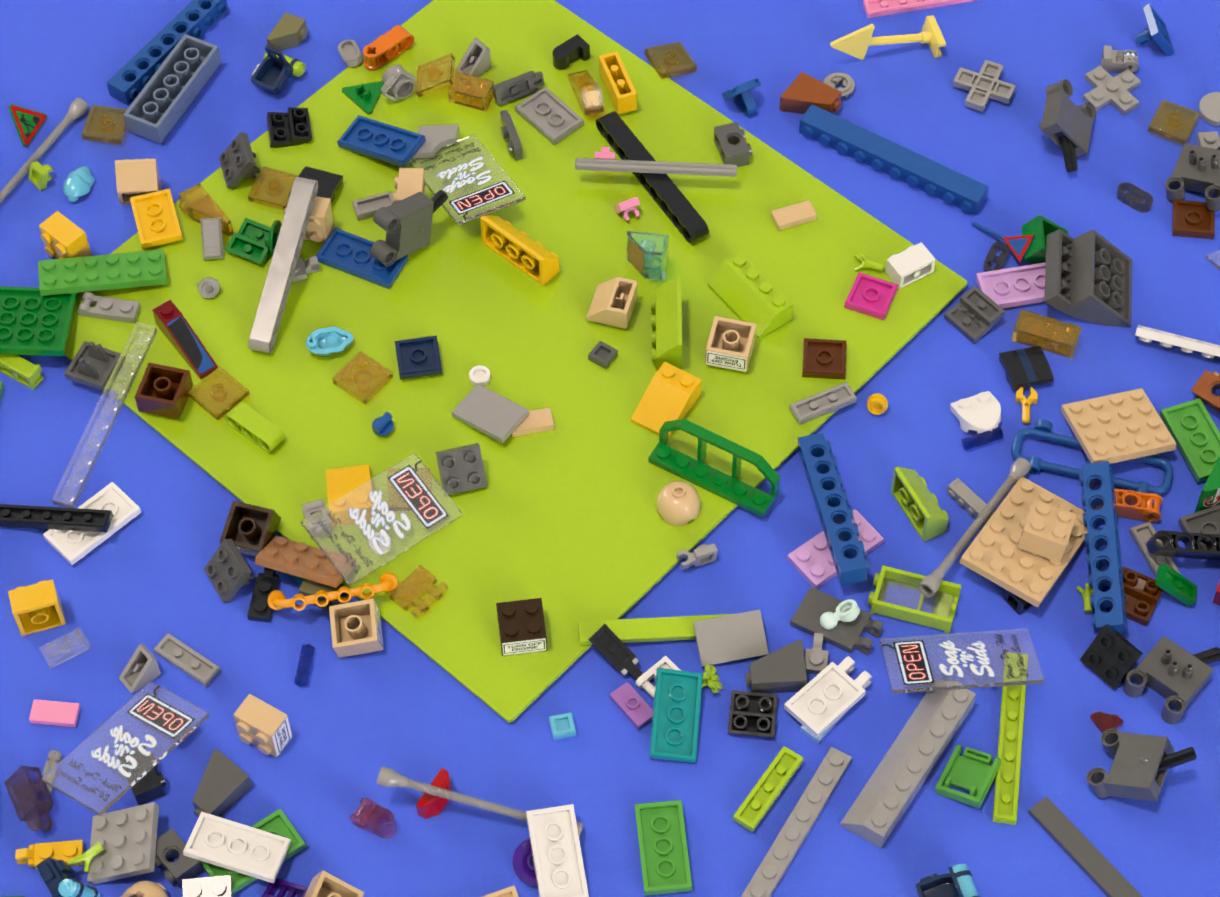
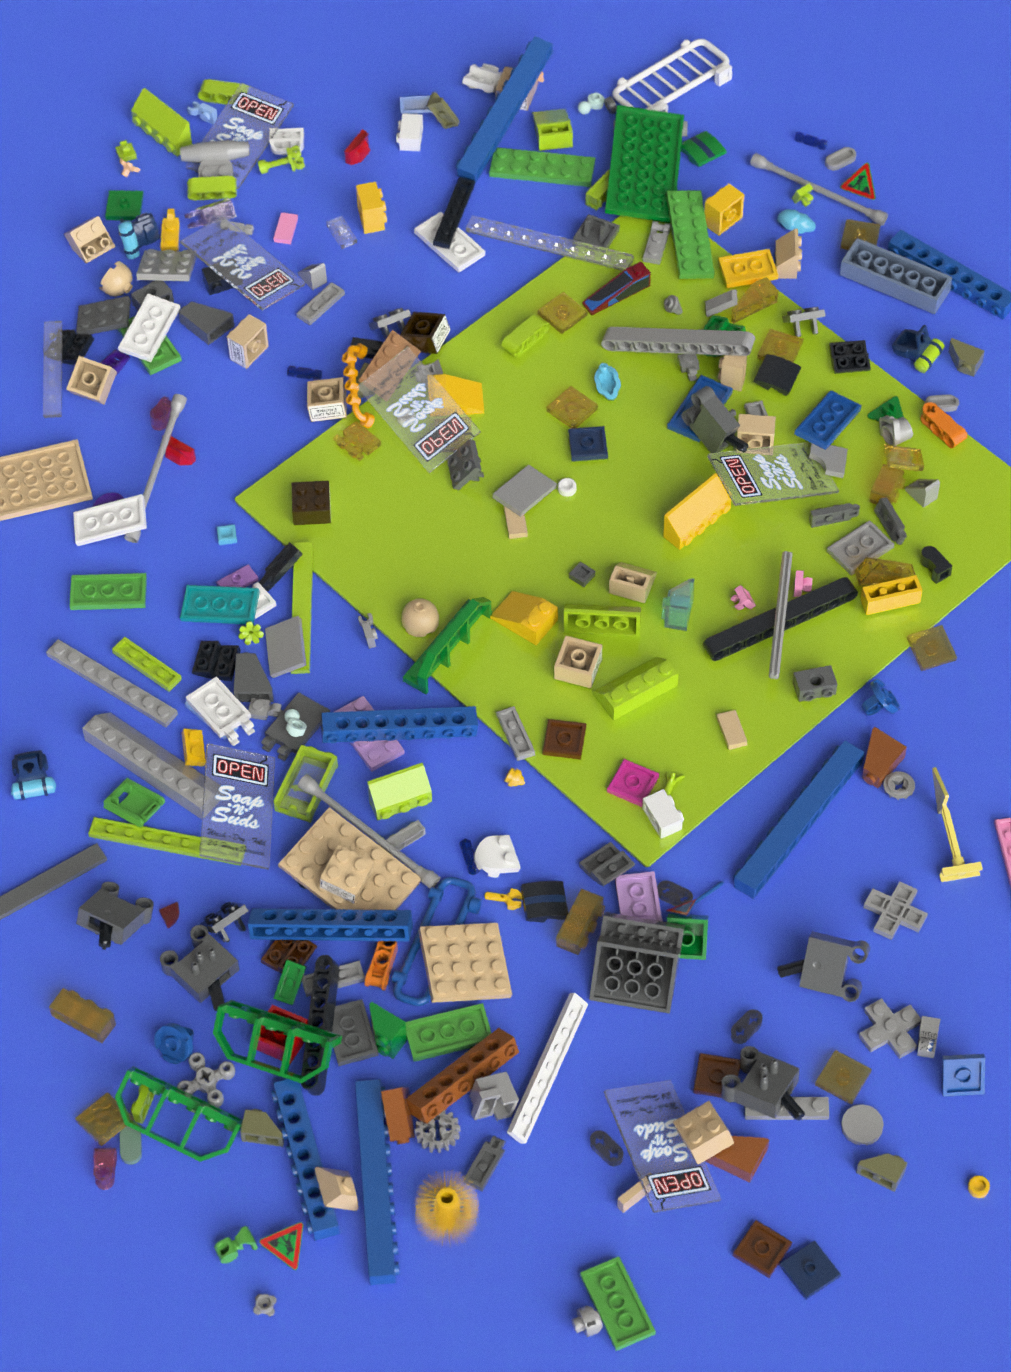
camera: 95 degrees right, 0 degrees up
(87, 856) = (158, 244): lime bar -> none
(163, 391) = (562, 274): reddish brown brick -> none
(383, 425) = (519, 419): blue plate -> none
(881, 722) = (193, 747): none -> yellow plate

